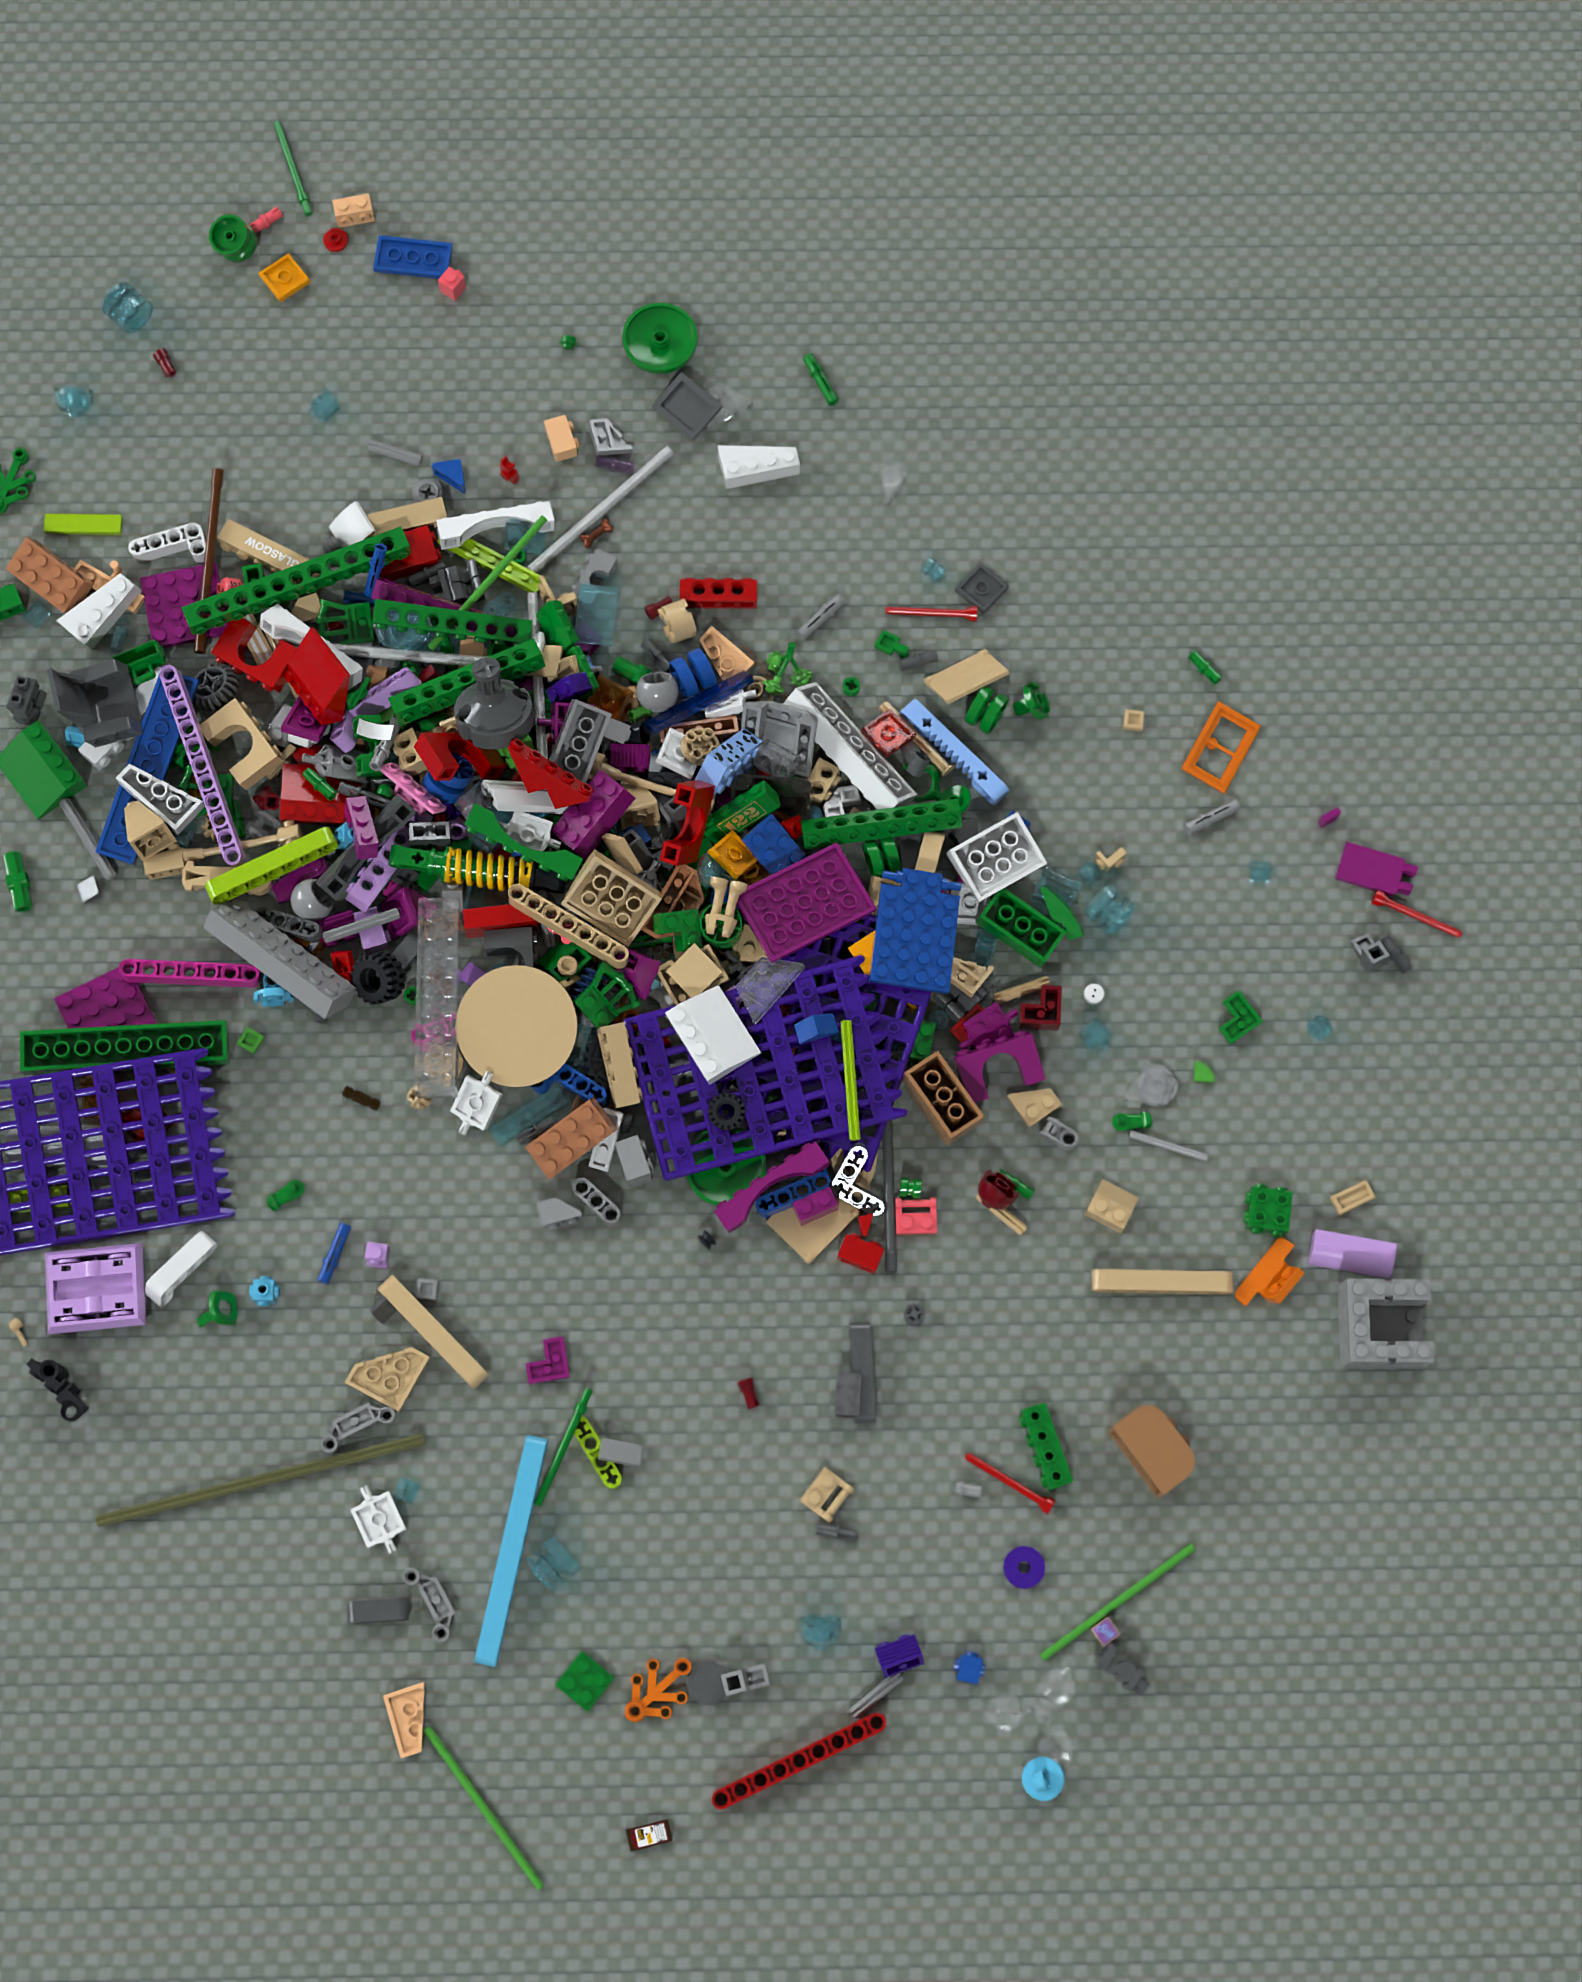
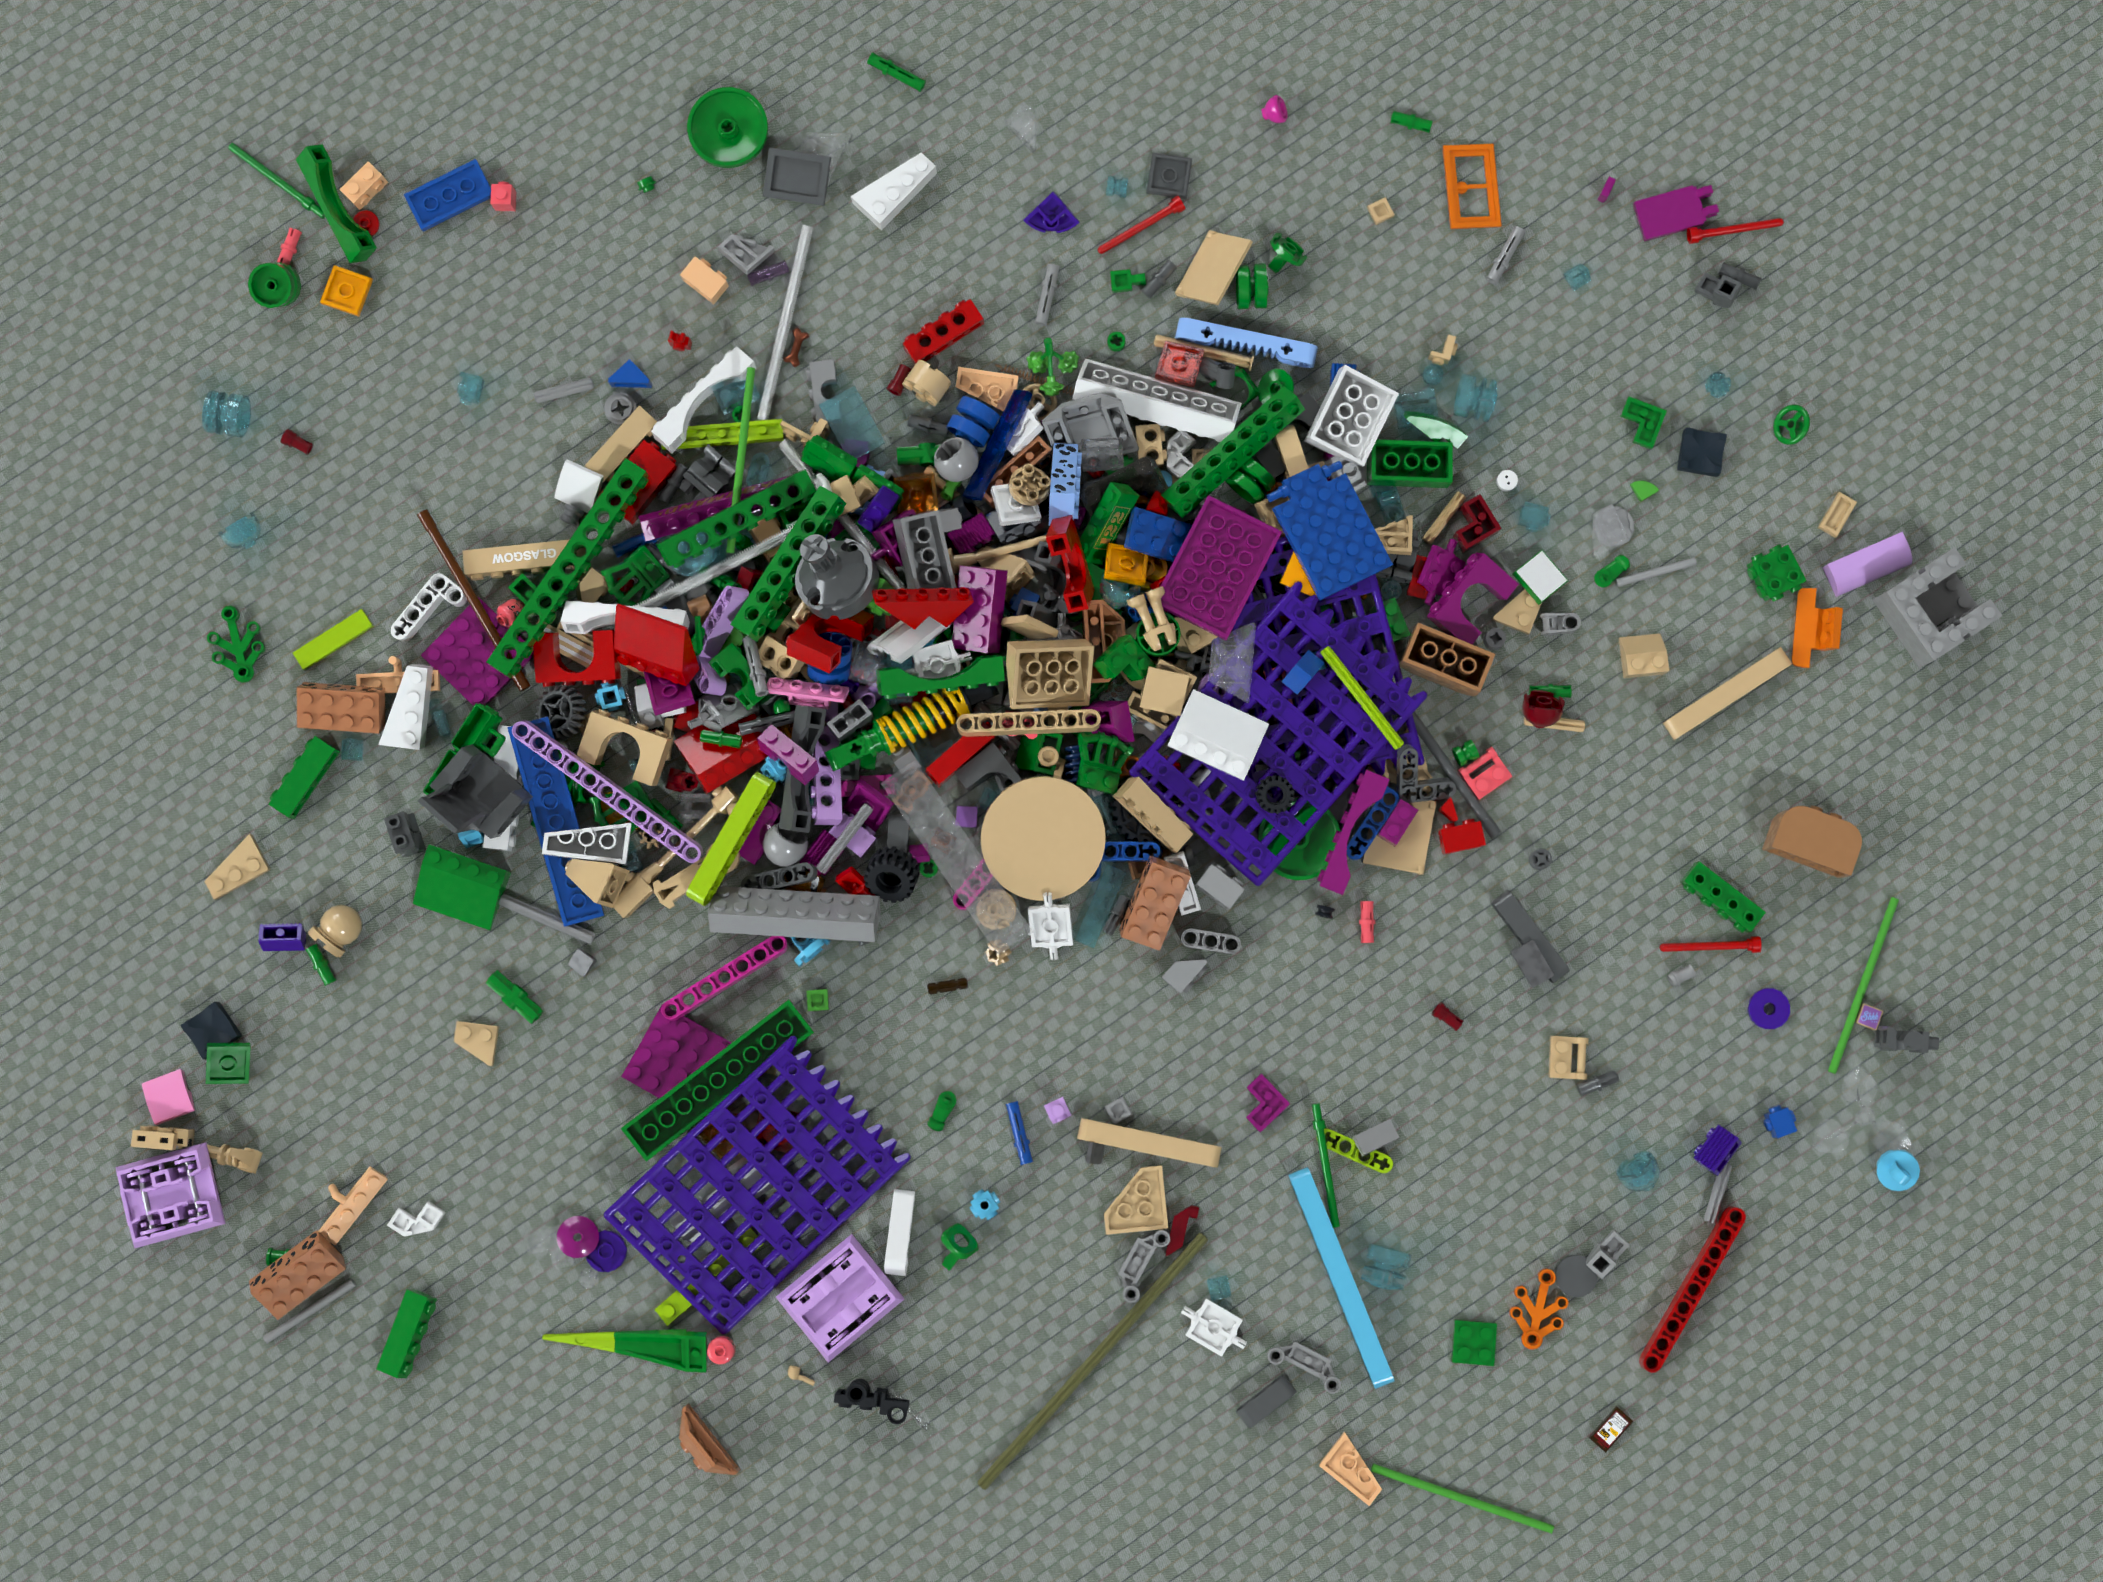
camera: 25 degrees left, 10 degrees up
(253, 700) = (604, 701): none -> medium azure brick
(326, 180) = (318, 173): none -> green arch
(374, 731) = (739, 660): white sticker -> none
(379, 553) = (630, 508): blue pin -> none
(408, 1418) = (1179, 1227): none -> dark red piece
(411, 977) = (919, 852): none -> magenta tile
(735, 1271) = (1367, 922): none -> coral pin
(866, 560) = (1051, 215): none -> dark purple brick
(995, 1115) = (1494, 643): none -> flat silver wheel
(1068, 1087) = (1540, 577): none -> white tile
(1100, 590) = (1275, 110): none -> dark pink brick
(1270, 1073) = (1701, 452): none -> black brick
(1363, 1101) = (1797, 427): none -> green piece

